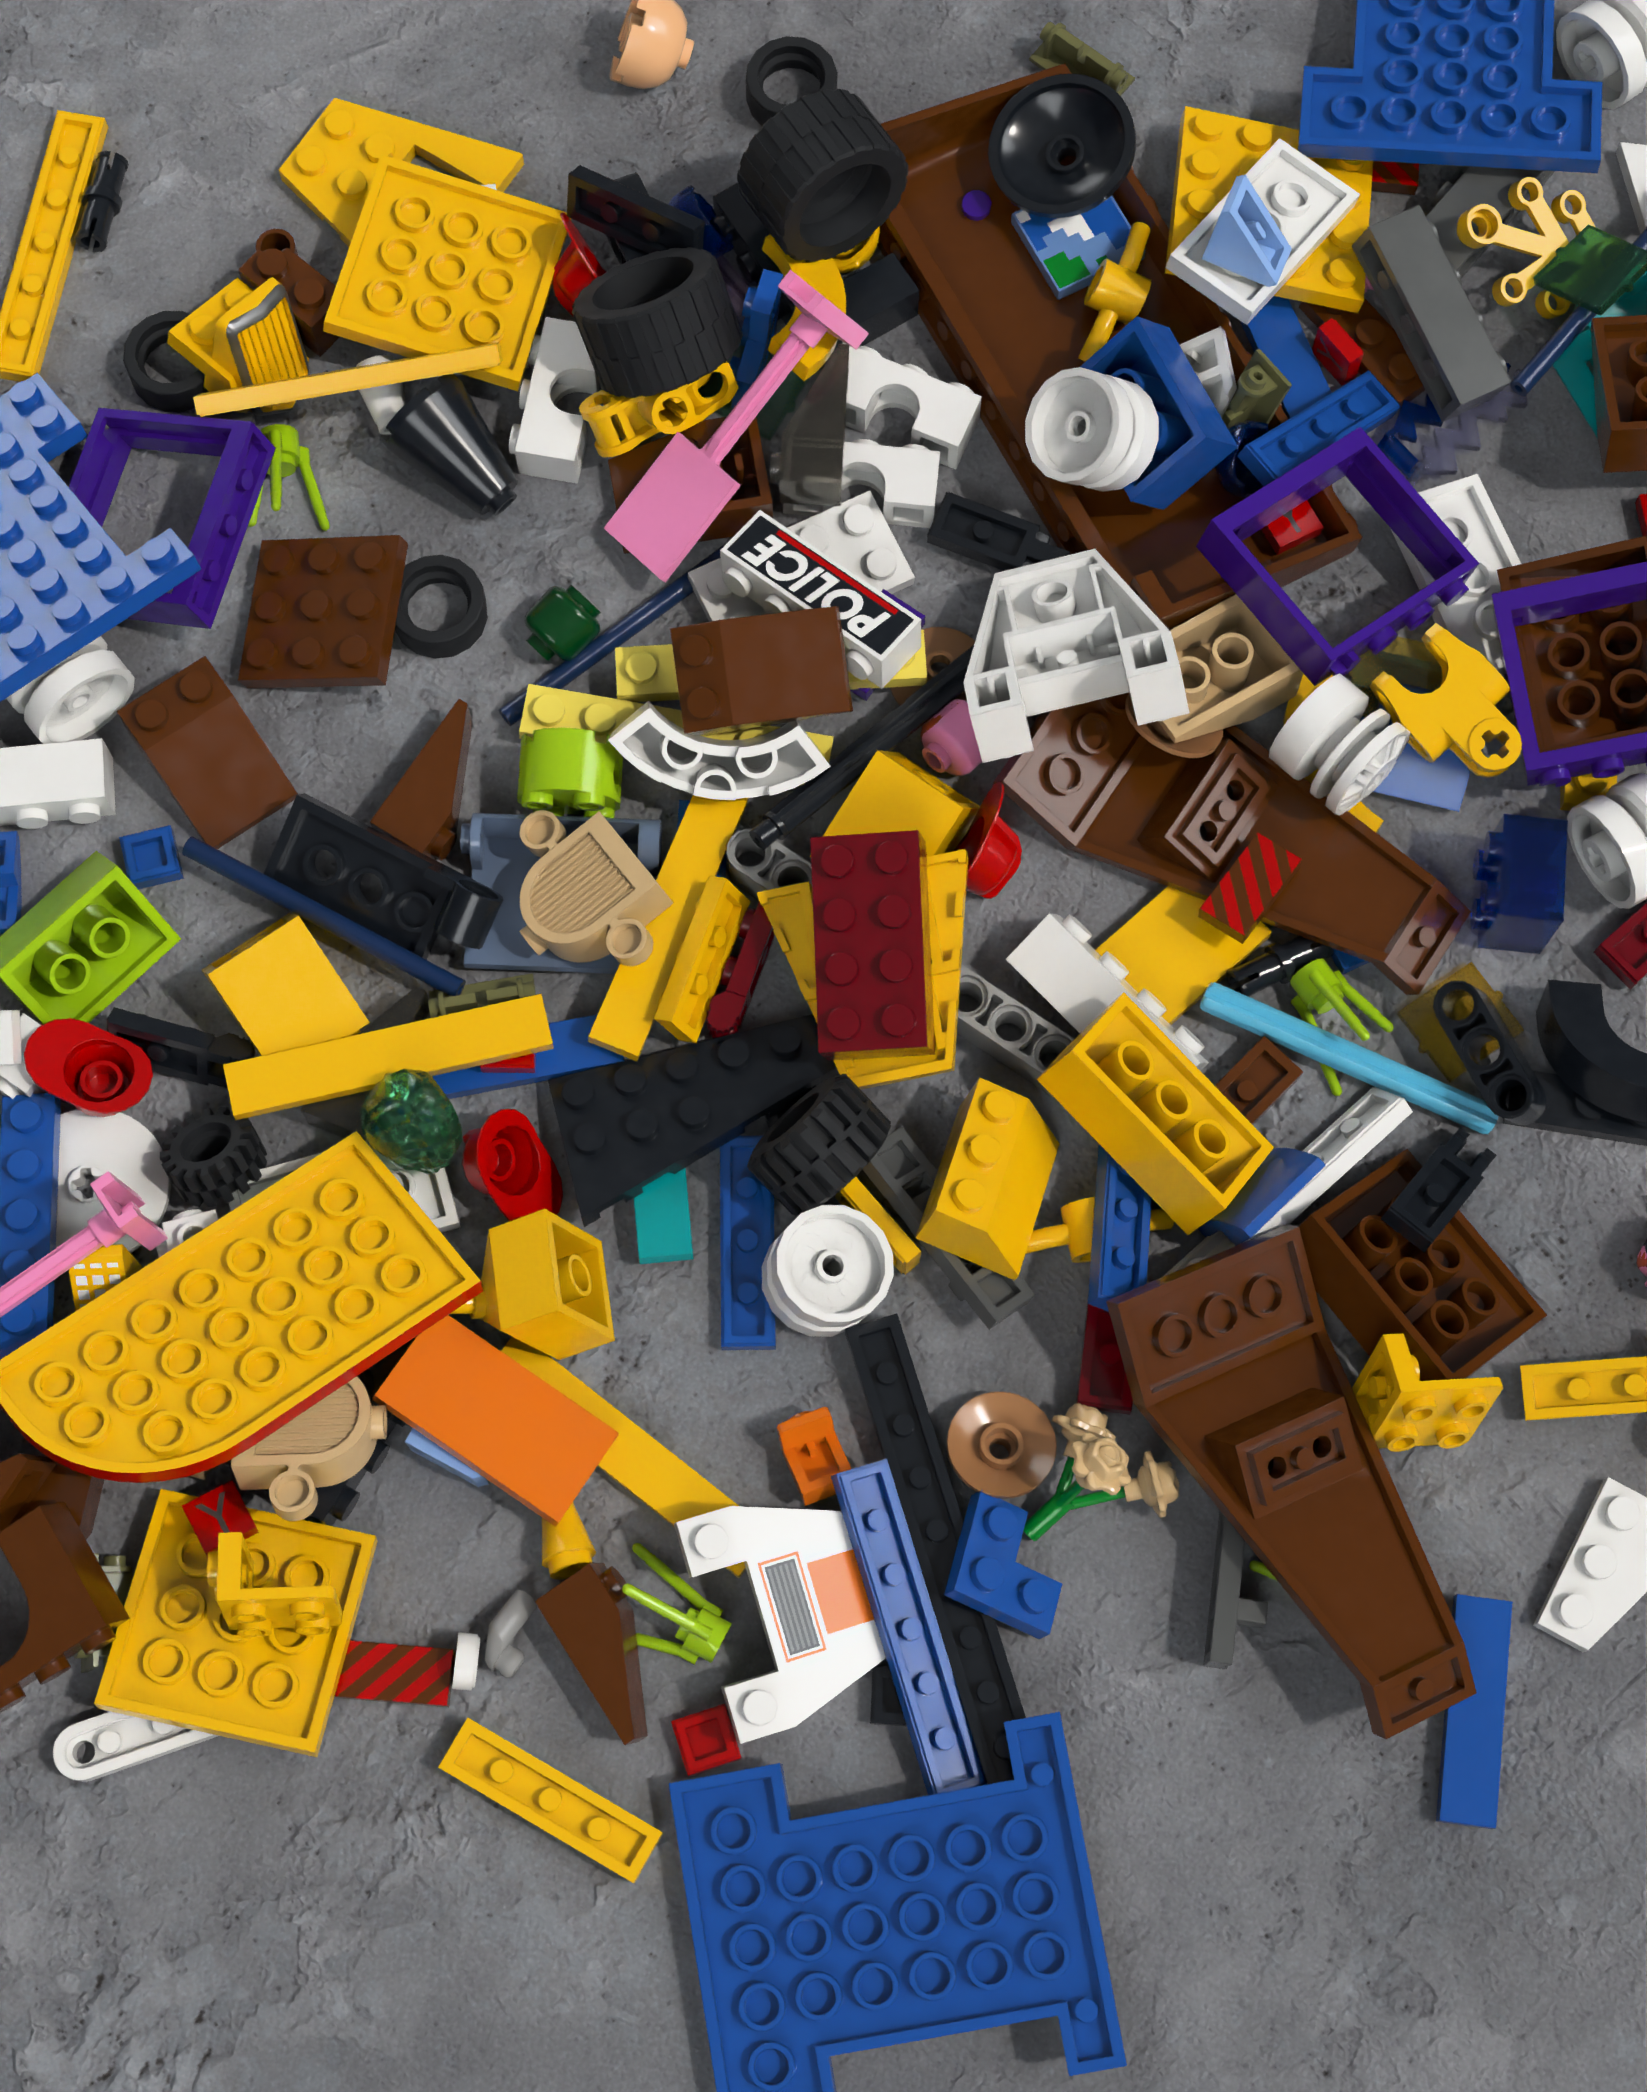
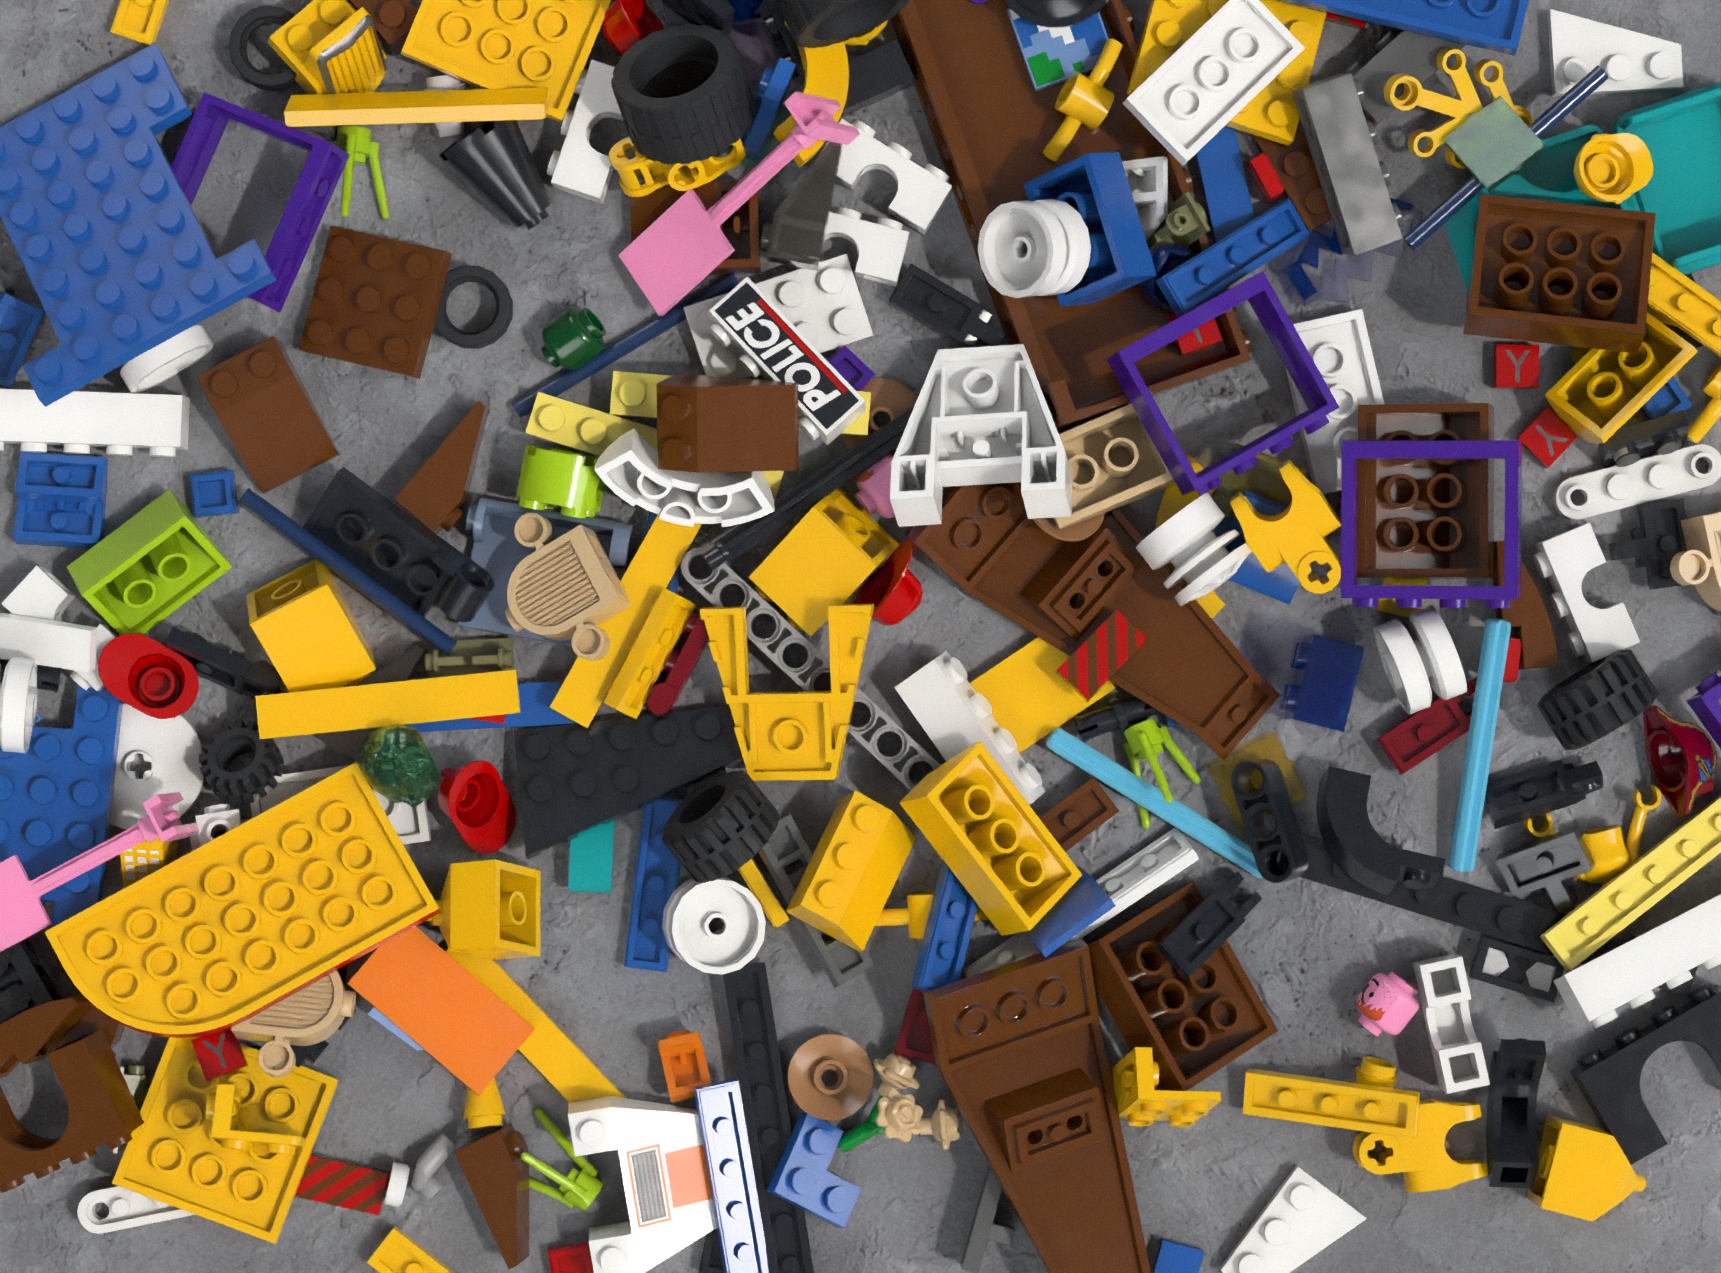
camera: 10 degrees right, 15 degrees up
(872, 945) = (783, 678): dark red brick -> none
(1248, 237) = (1194, 96): light blue slope -> none

